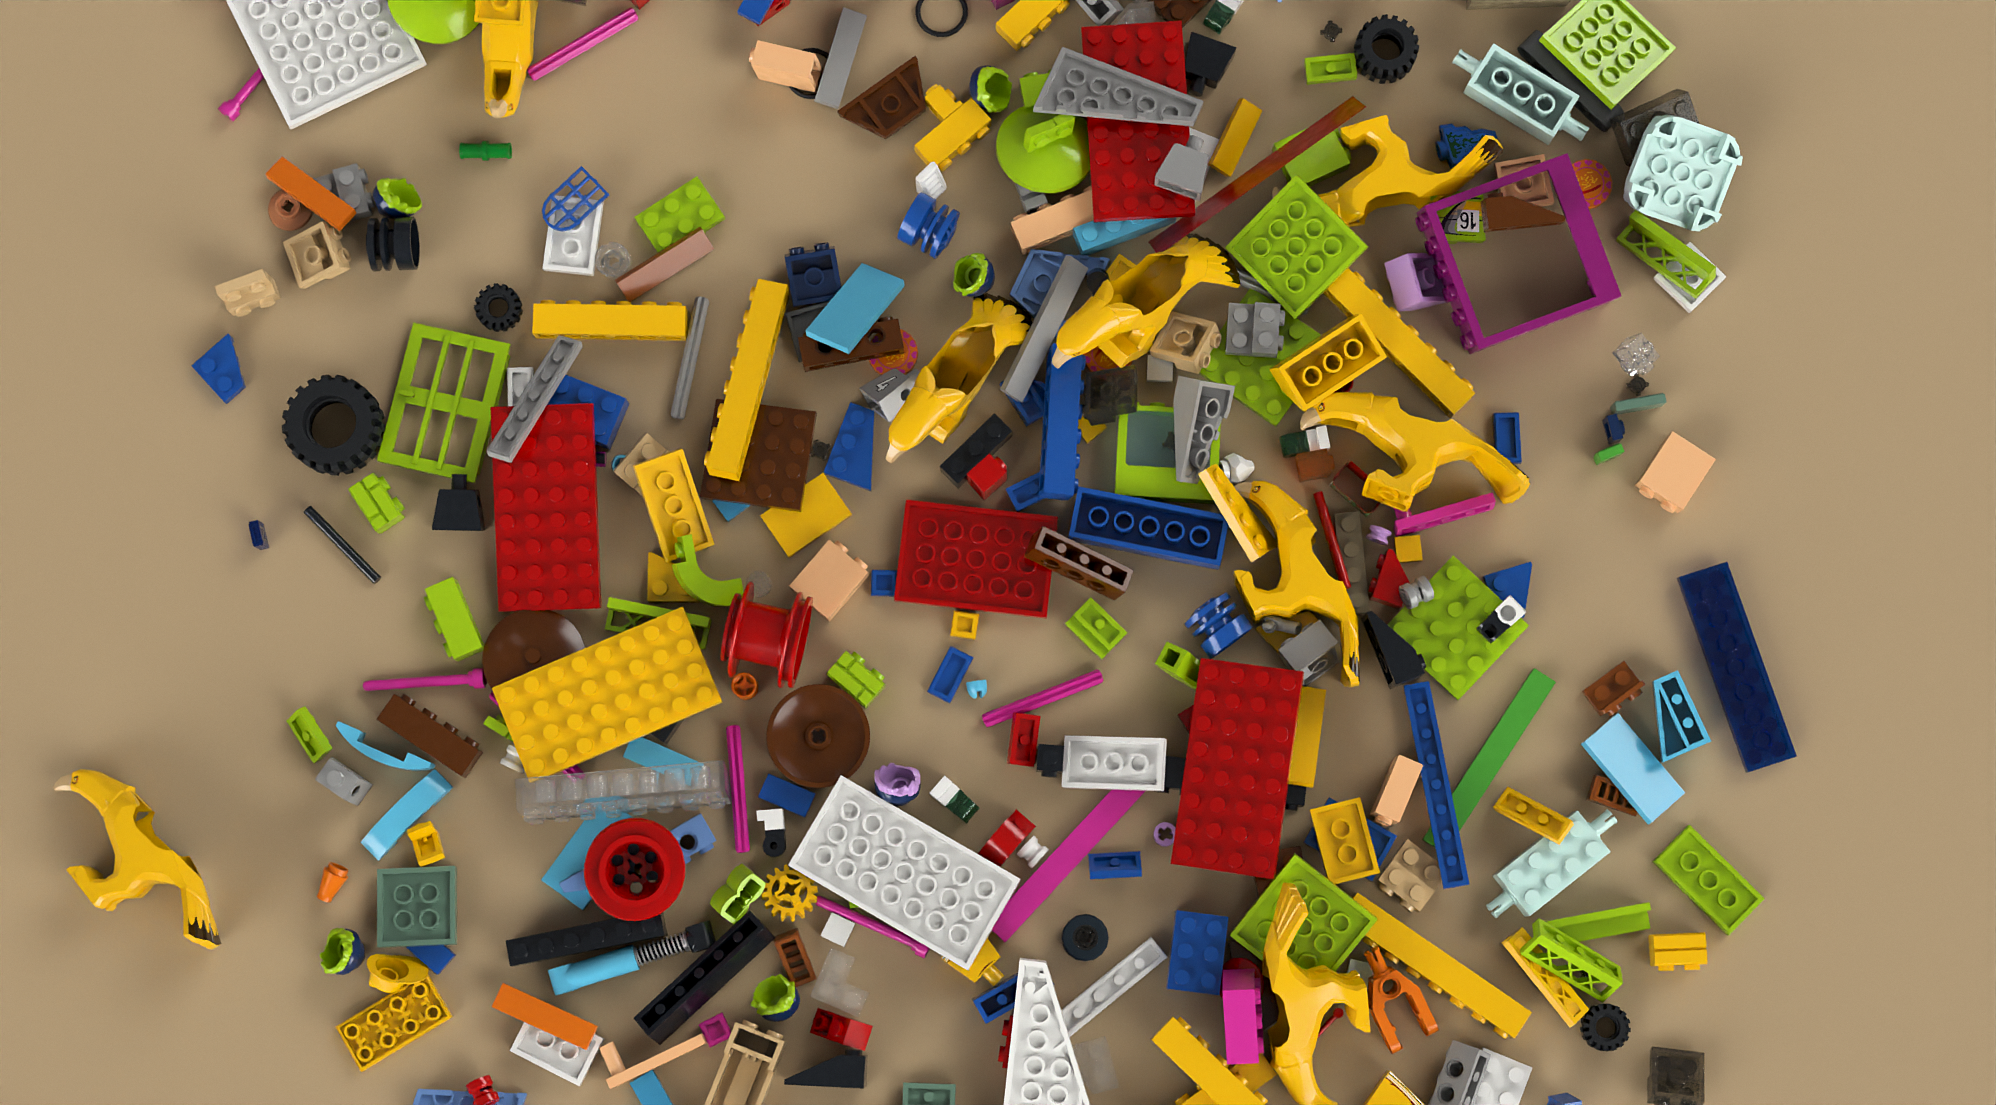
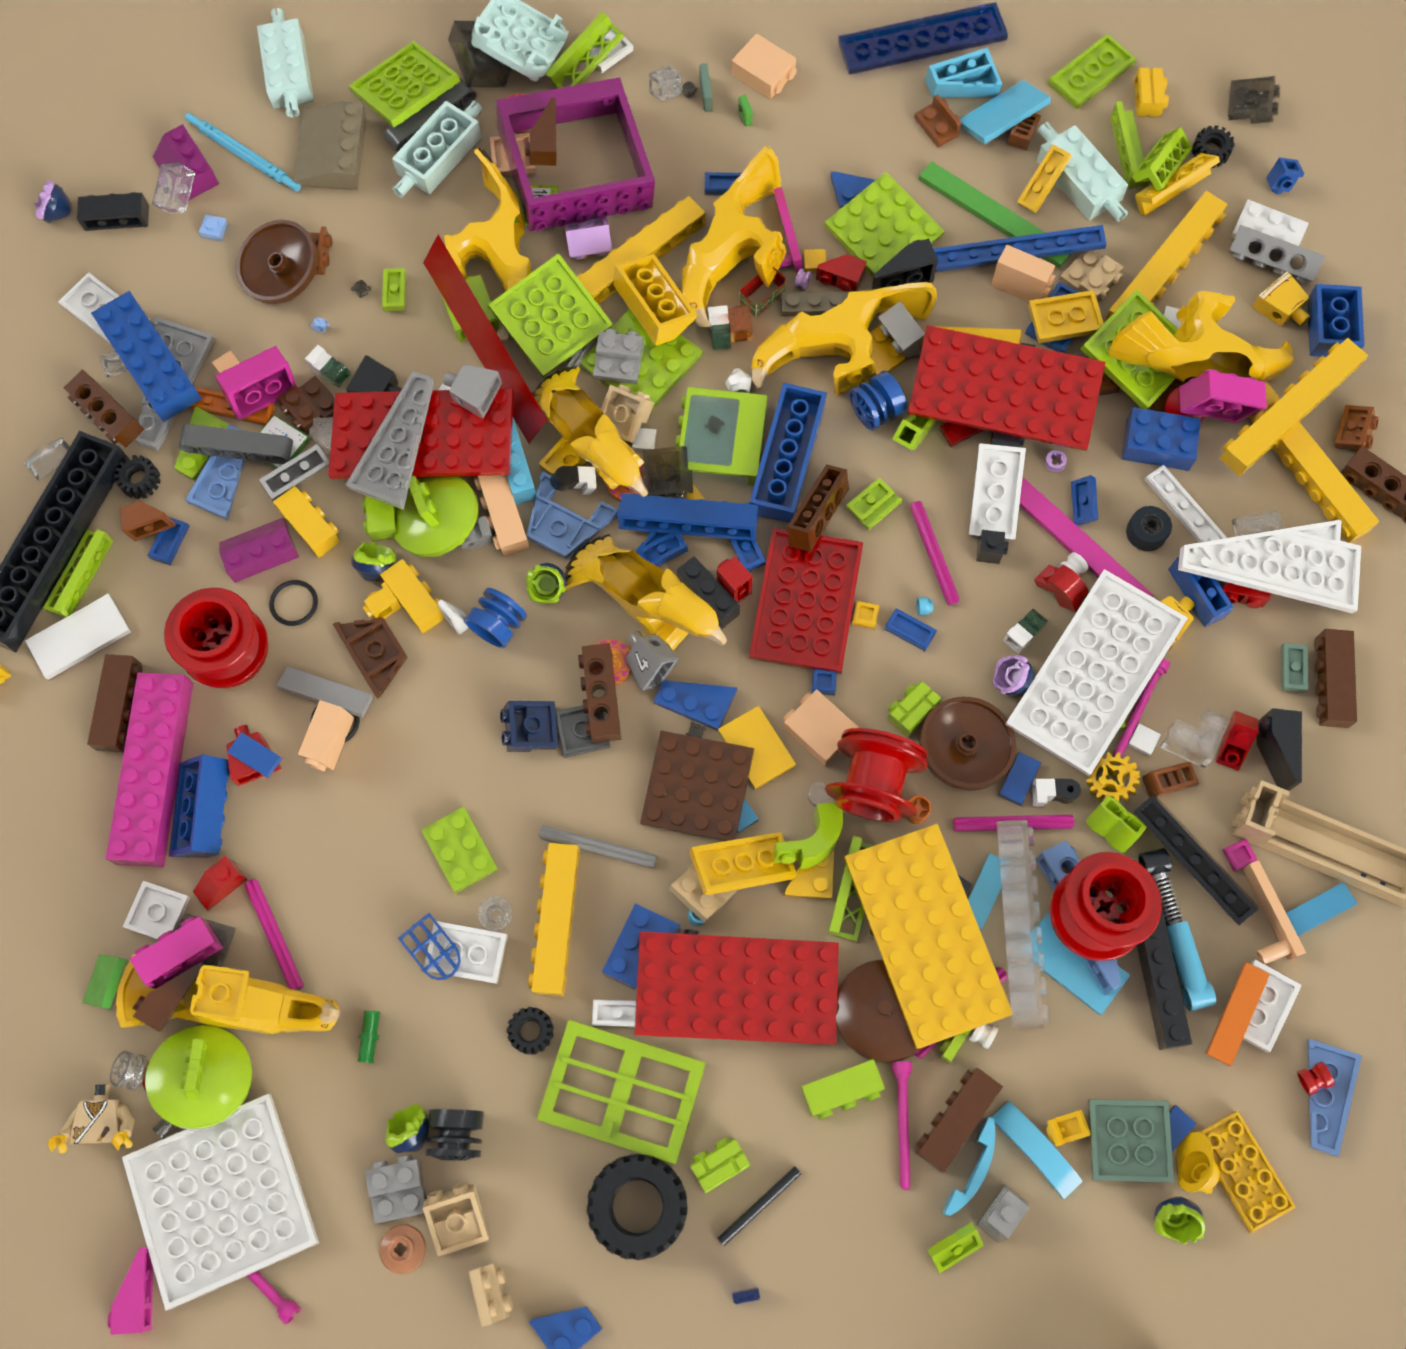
camera: 85 degrees left, 10 degrees down
(310, 193) = (391, 1221): orange tile -> none
(332, 880) = (1104, 1229): orange cone -> none
(458, 507) = (731, 1079): black torso -> none
(534, 398) = (632, 988): light grey tile -> none
(664, 264) = (504, 865): tile -> none
(747, 380) = (627, 787): yellow brick -> none
(776, 998) = (1213, 794): lime hair -> none
(855, 308) = (567, 685): medium azure tile -> none
(1023, 739) = (972, 568): red plate -> none
(1044, 328) = (602, 524): light grey tile -> none
(1197, 416) = (685, 400): light grey wedge -> none
(1235, 137) = (435, 361): yellow tile -> none
(1242, 520) = (786, 374): yellow wing -> none
(1276, 623) = (878, 353): light grey arm -> none
(1331, 538) = (769, 323): red bar -> none
(1378, 997) = (1189, 284): orange piece -> none
(1391, 30) = (379, 230): black tyre -> none
(1416, 592) = (857, 246): light grey wheel -> none
(1458, 142) = (474, 197): blue rock -> none
(1501, 619) = (882, 184): leg -> none
(1613, 428) = (724, 106): dark blue plate -> none

